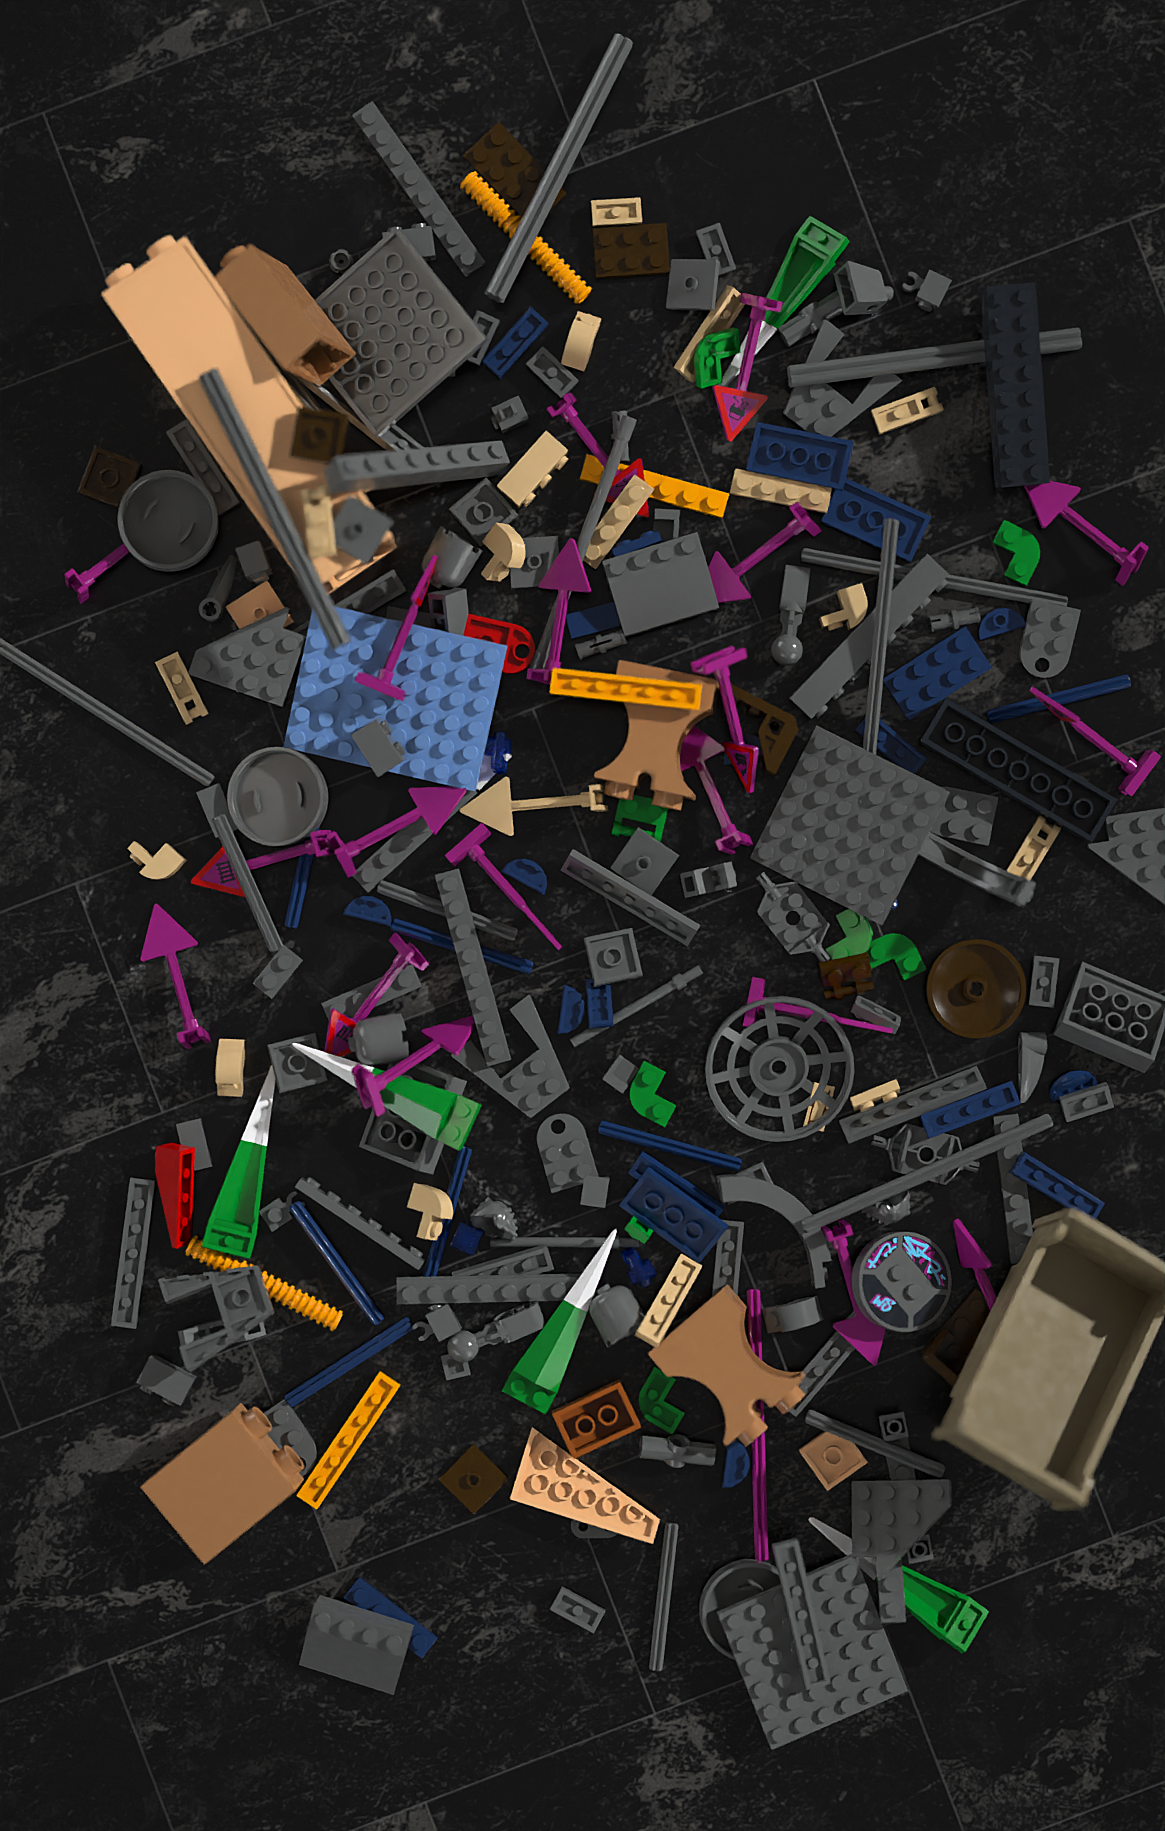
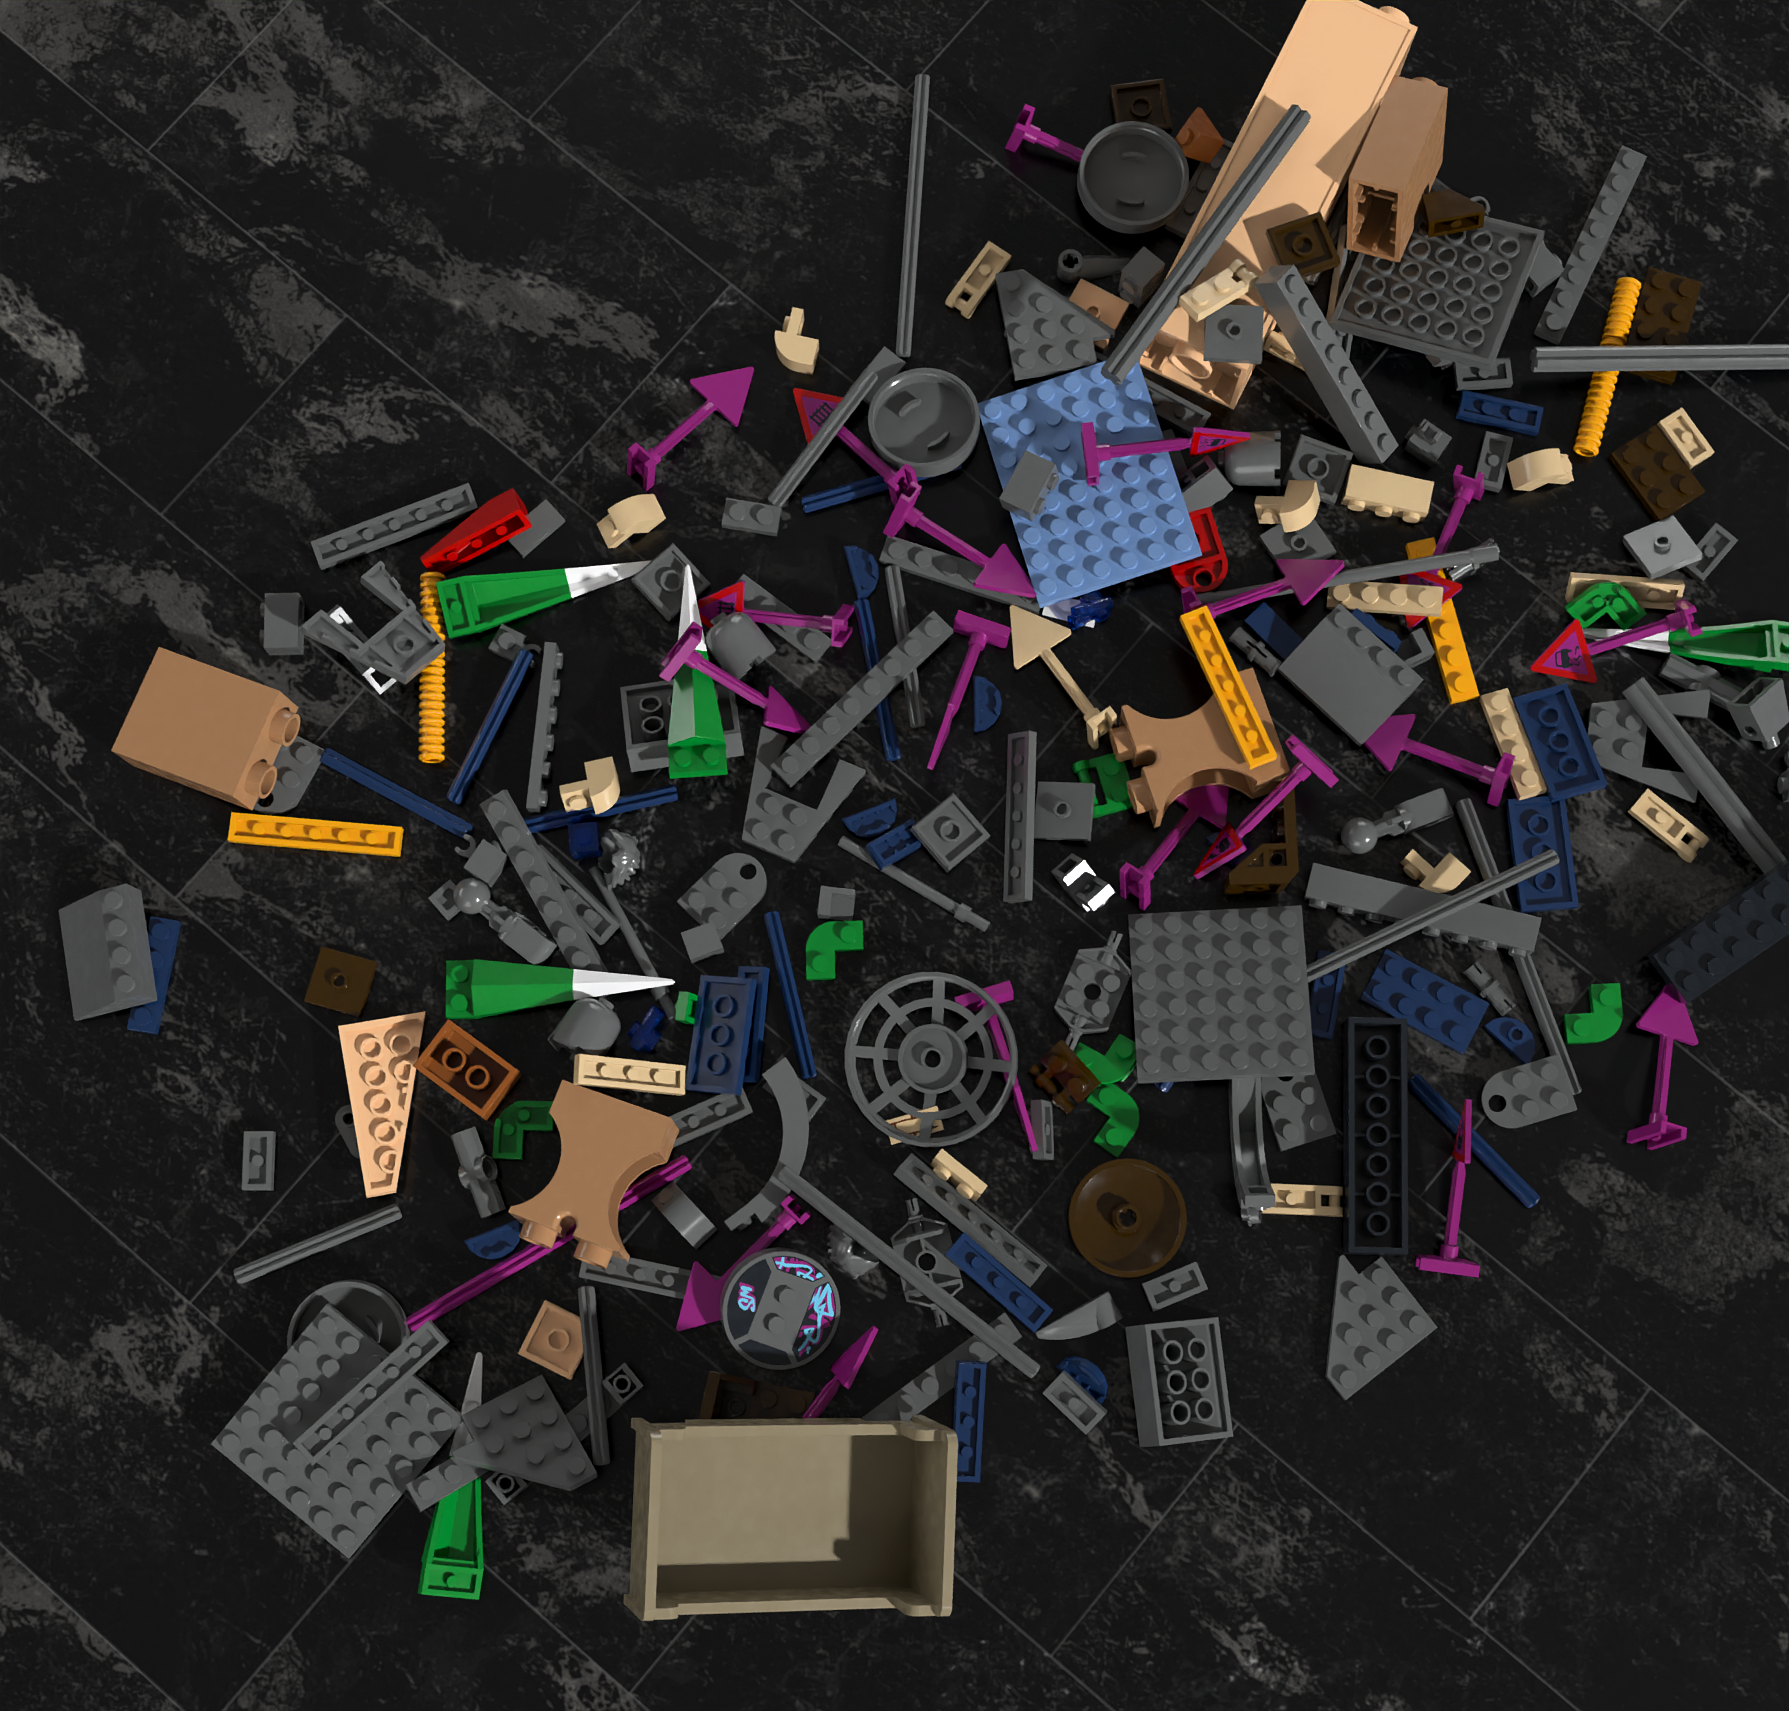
camera: 70 degrees right, 10 degrees down
(163, 449) = (1199, 137): none -> dark orange slope
(339, 291) = (1450, 213): none -> dark brown slope

